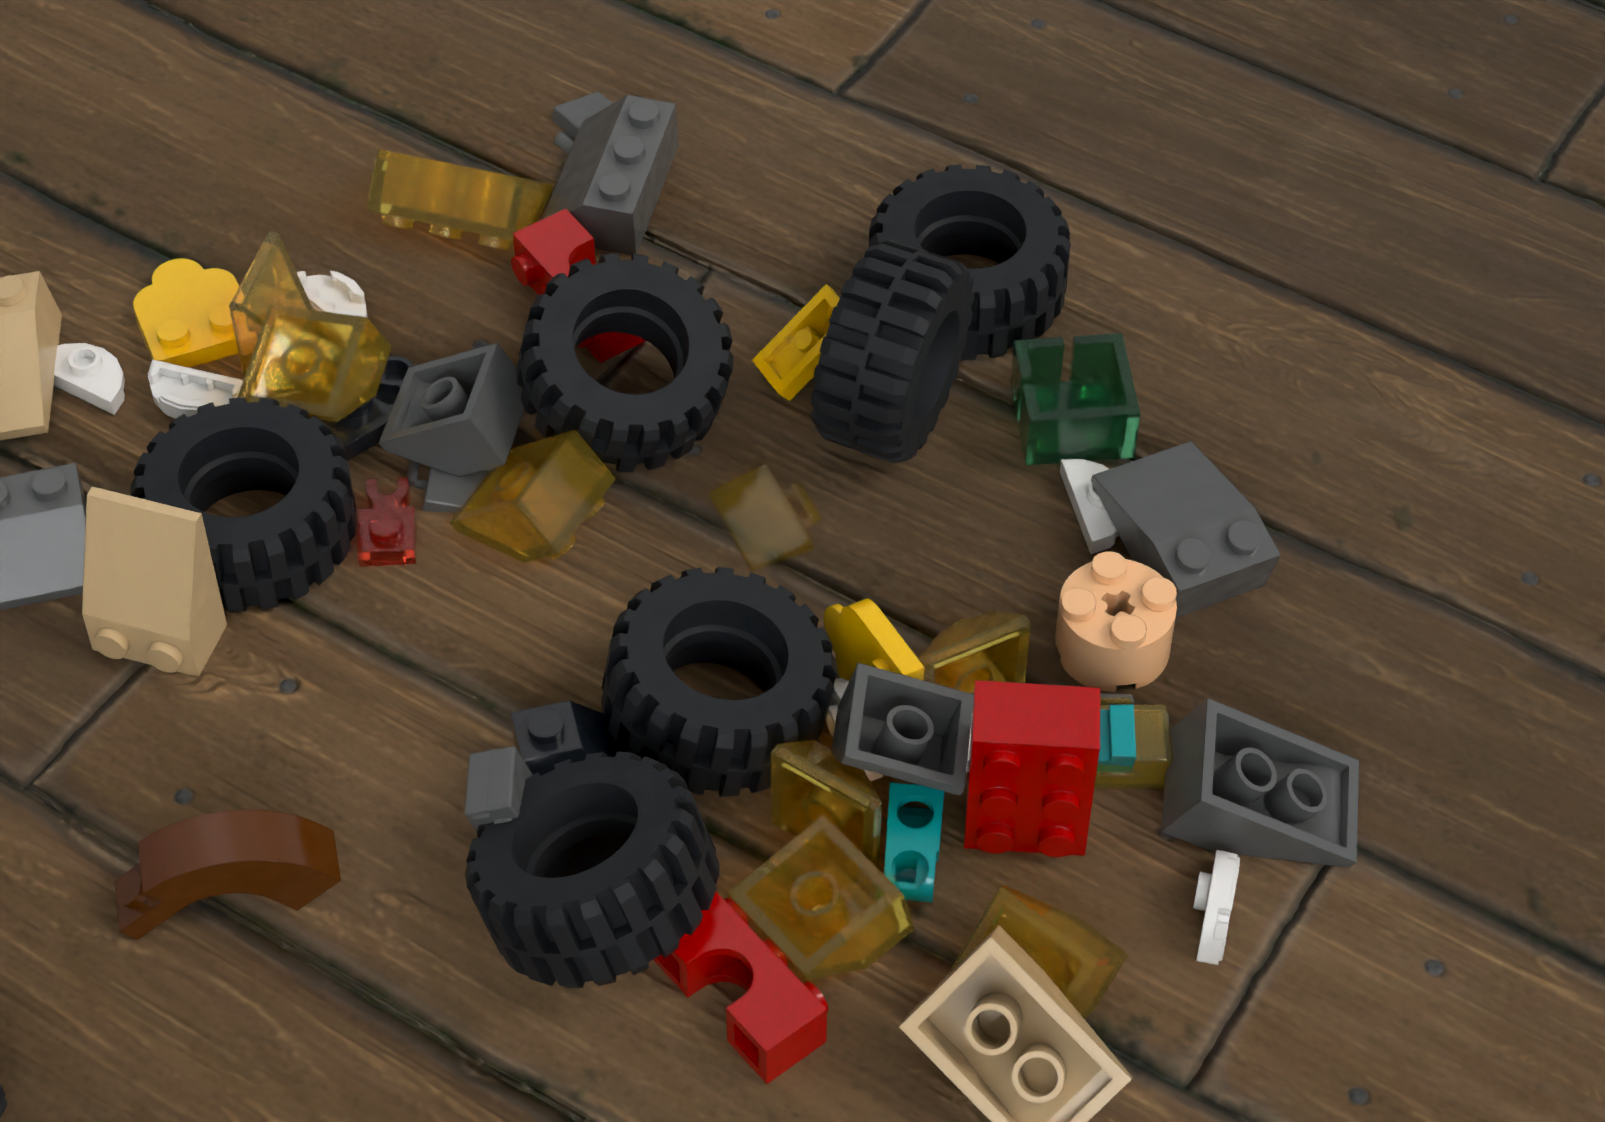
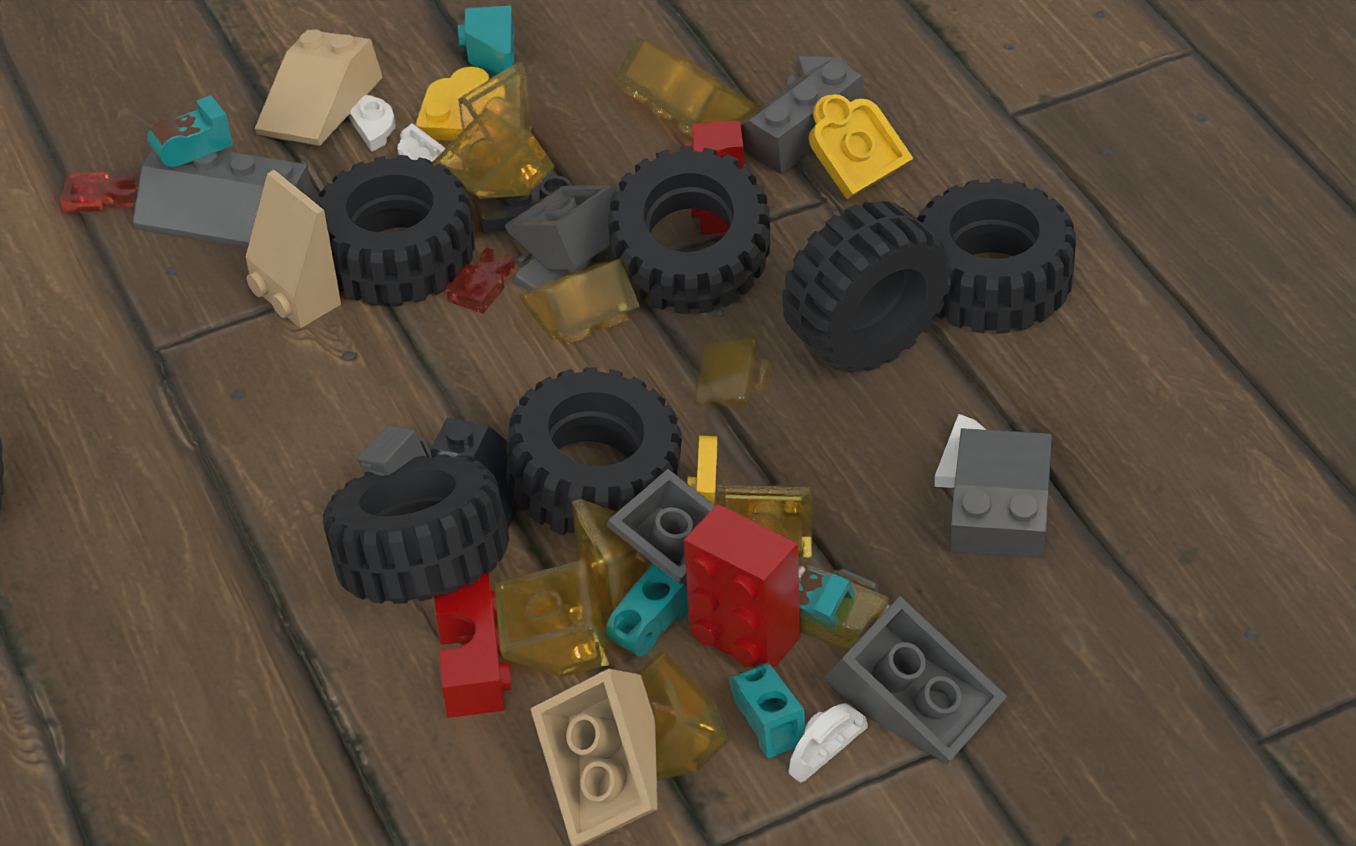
camera: 35 degrees right, 5 degrees down
(171, 220) = (488, 38): none -> teal slope
(226, 854) = (220, 430): reddish brown arch -> none
(334, 293) = (552, 128): white plate -> none
(713, 187) = (855, 143): none -> yellow plate
(1077, 419) = (979, 384): clear green piece -> none
(1115, 623) = (900, 532): light nougat brick -> none
(1131, 894) = (769, 709): none -> teal leg

